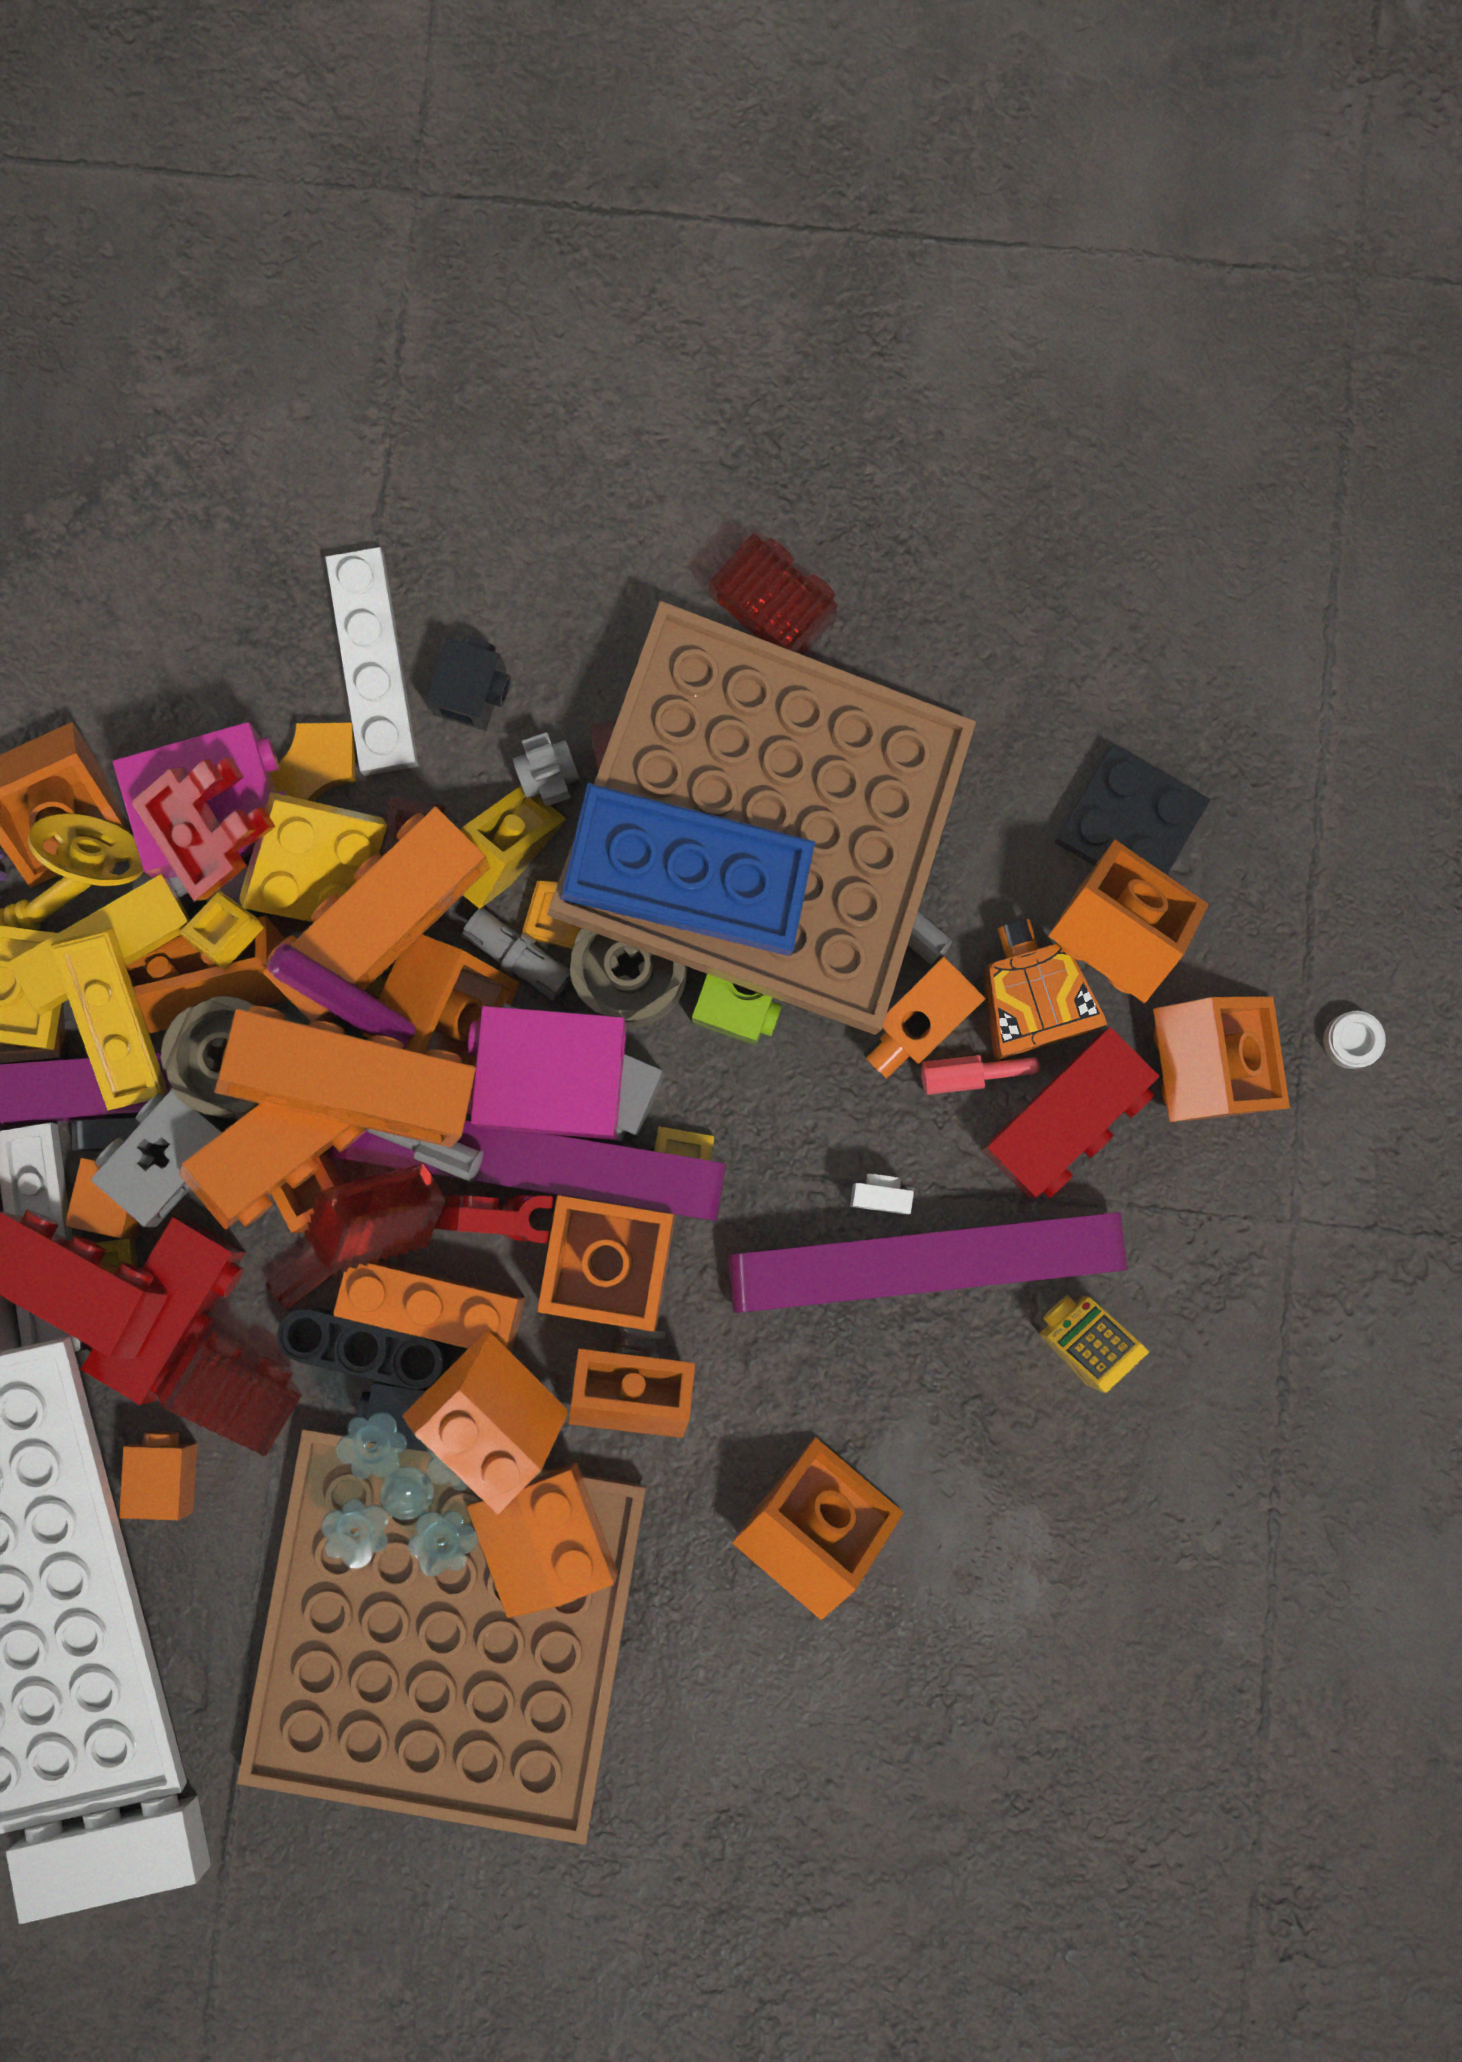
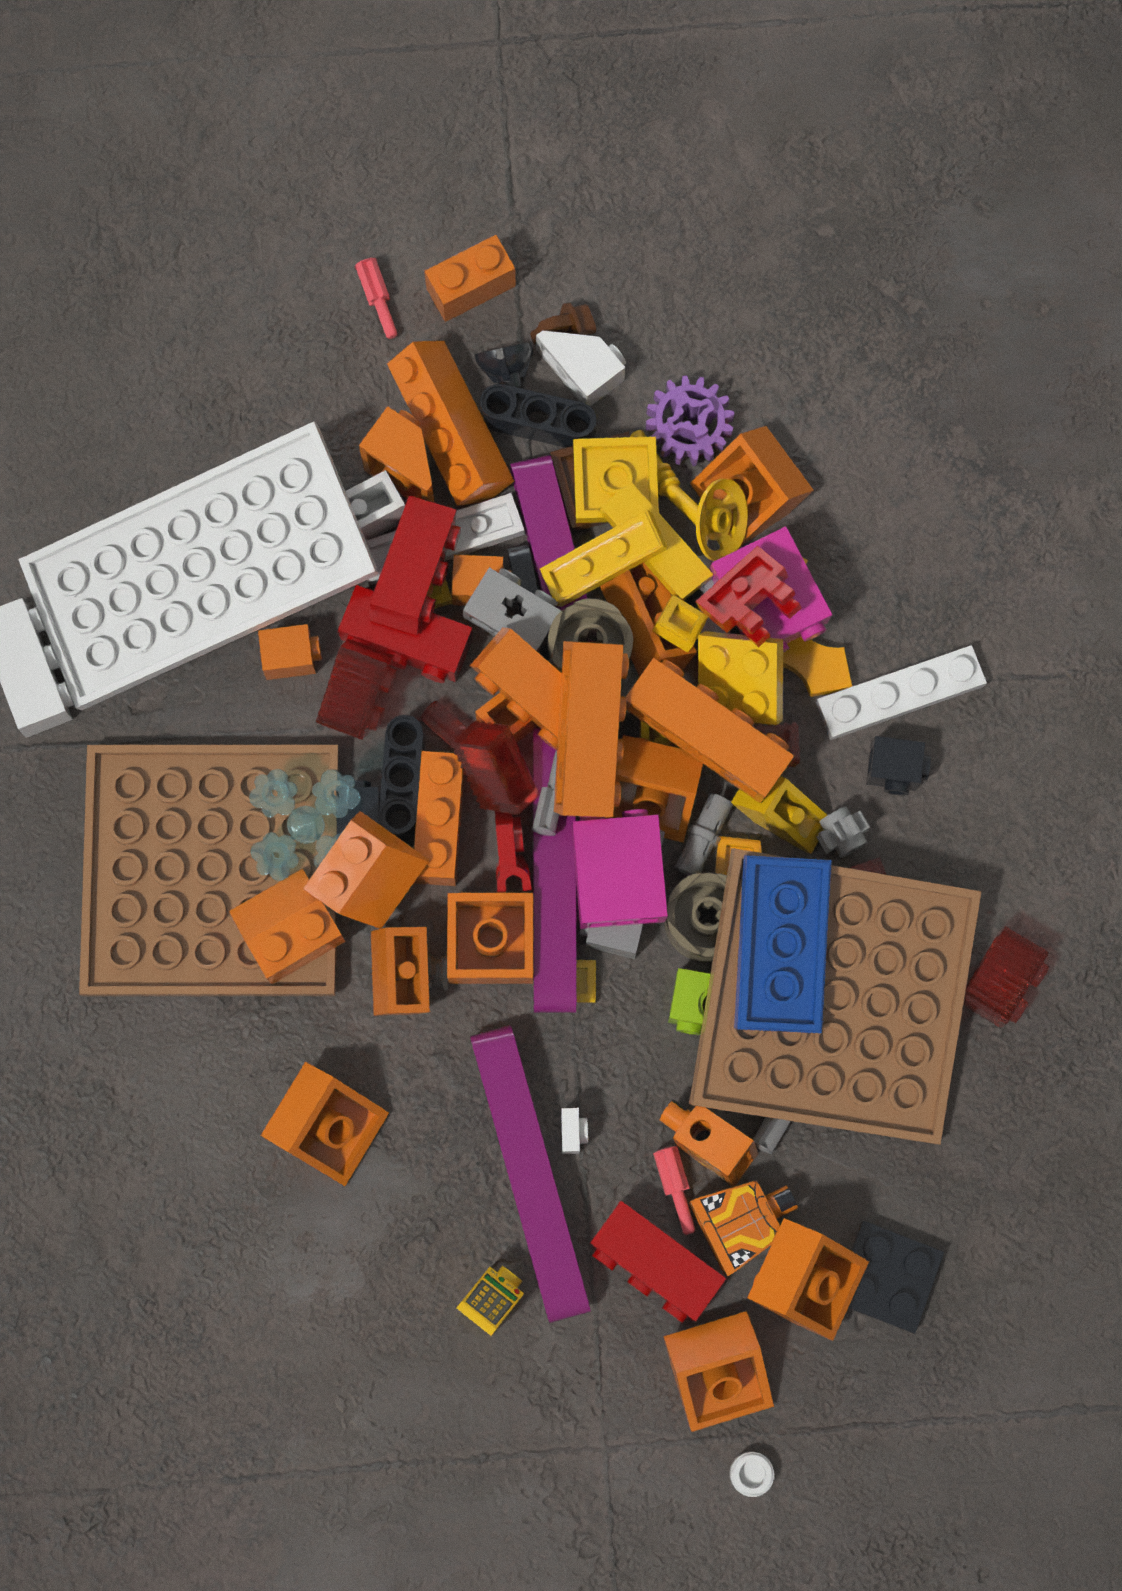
camera: 75 degrees right, 5 degrees down
(338, 994) = (645, 713): magenta axle -> none

